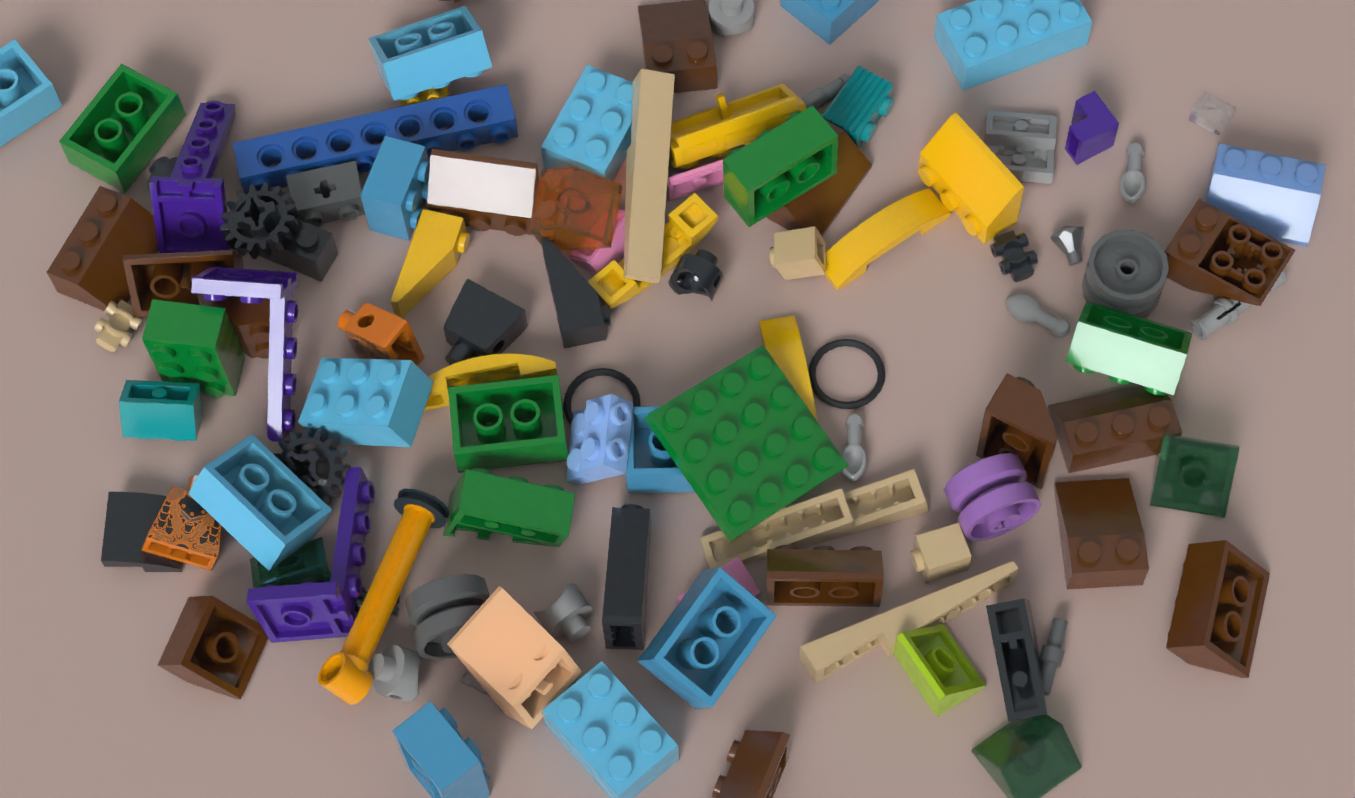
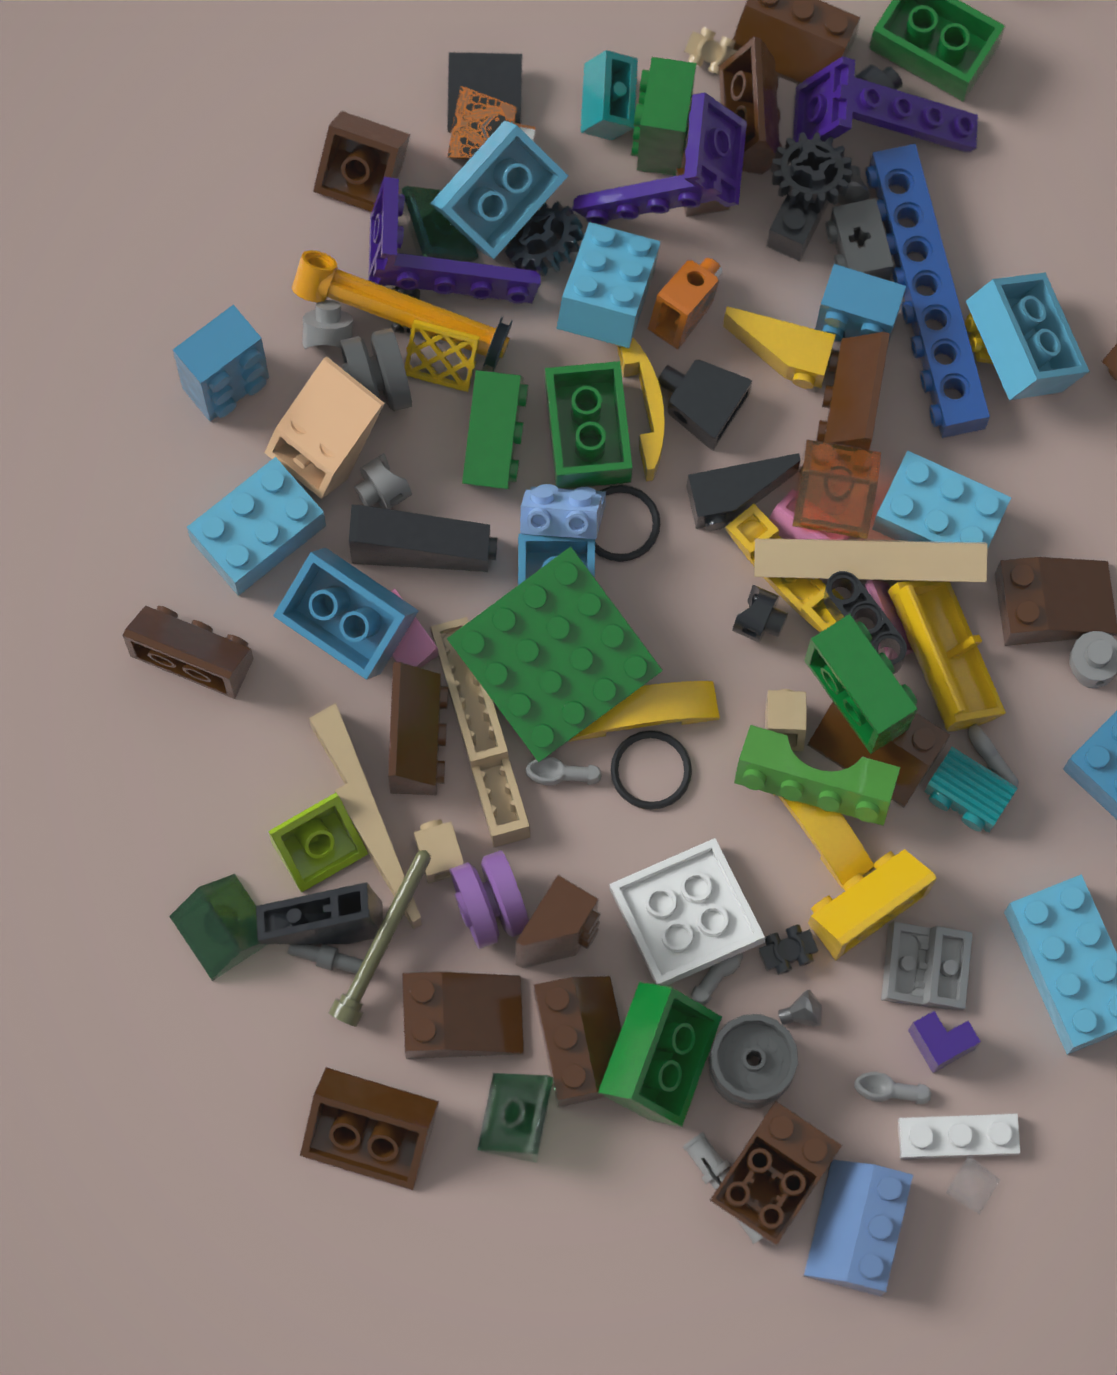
camera: 85 degrees right, 10 degrees up
(411, 553) = (449, 334): none -> yellow window
(693, 180) = (863, 605): none -> black beam
(847, 259) = (773, 767): none -> bright green arch
(988, 333) = (687, 913): none -> white plate
(1102, 632) = (349, 1005): none -> olive piece
(1170, 123) = (959, 1136): none -> white plate

